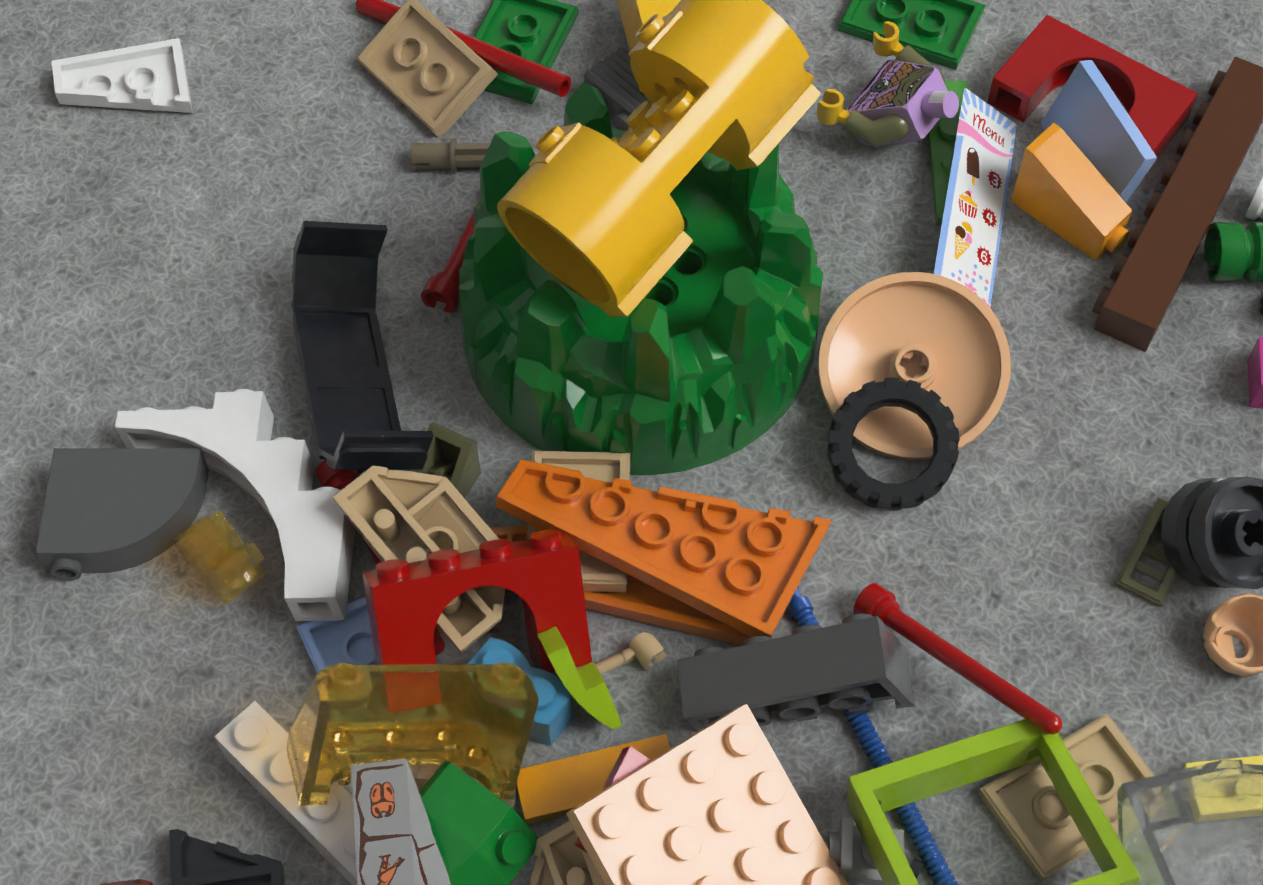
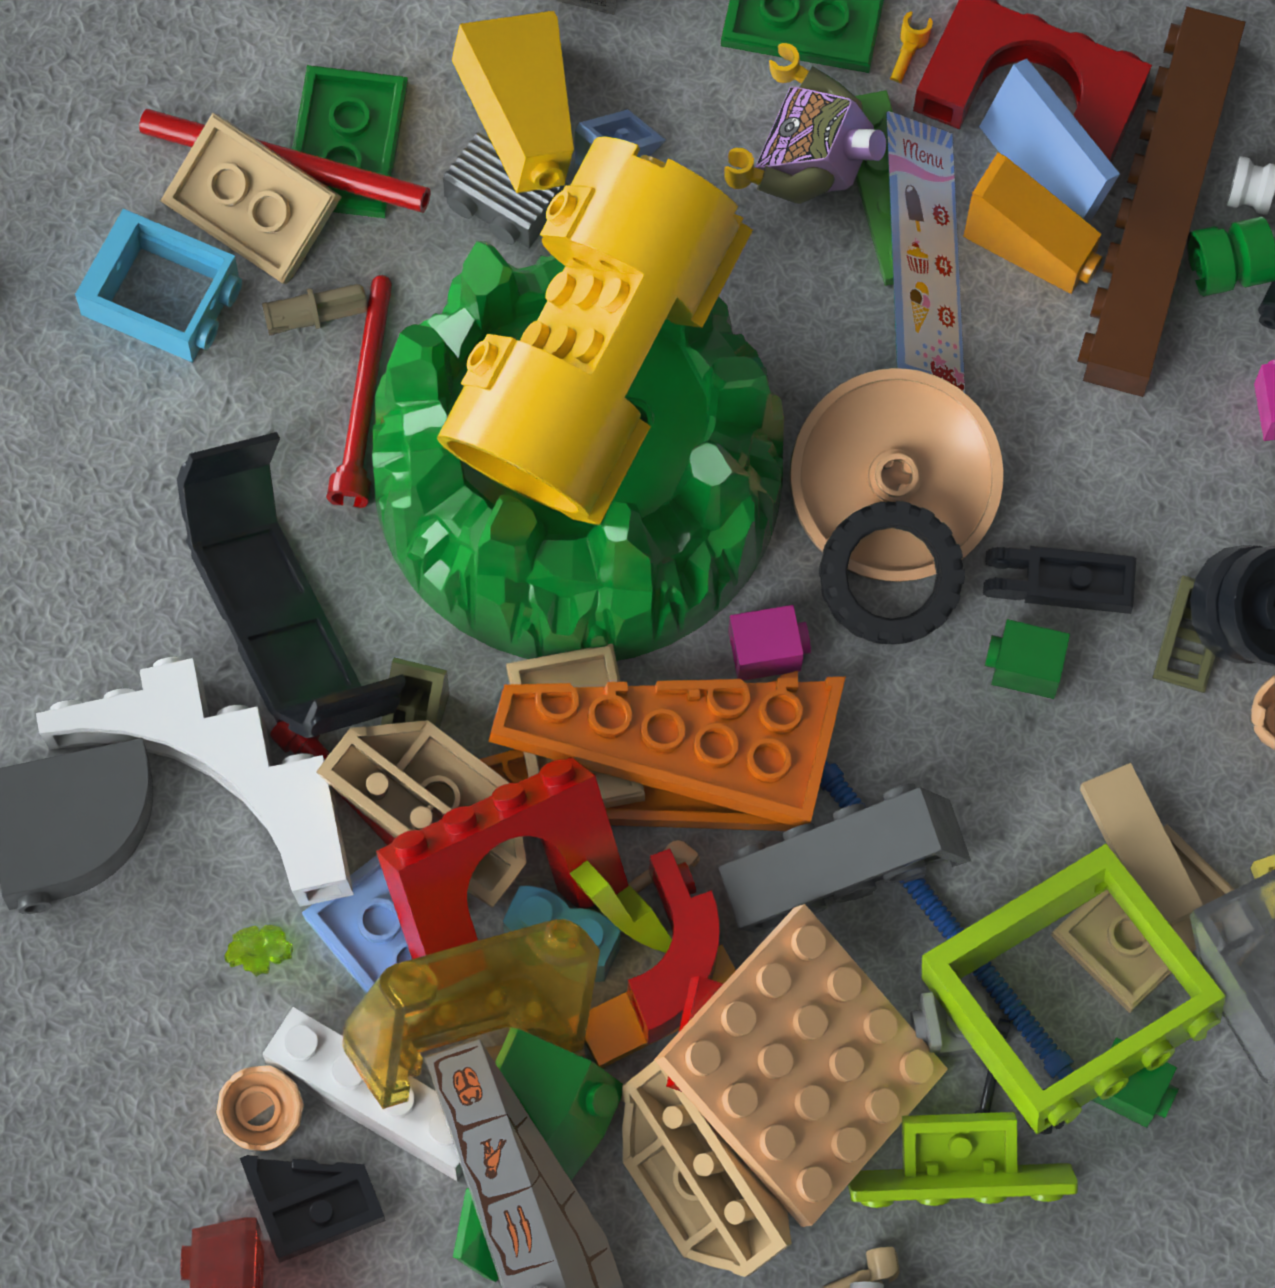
camera: 15 degrees left, 10 degrees up
(197, 776) = (251, 1093): none -> light nougat hair
(220, 556) = (198, 852): clear yellow brick -> none
(246, 647) = (257, 947): none -> clear neon green plant
(307, 88) = (115, 259): none -> medium azure window
(635, 724) = (661, 992): none -> red arch
(770, 480) = (768, 642): none -> dark pink brick
(882, 603) = (912, 760): red piece -> none
(996, 51) = (912, 40): none -> yellow hand
(1002, 541) = (1028, 658): none -> green brick
(1047, 482) = (1064, 578): none -> black hinge
(1070, 693) = (1141, 841): none -> tan tile

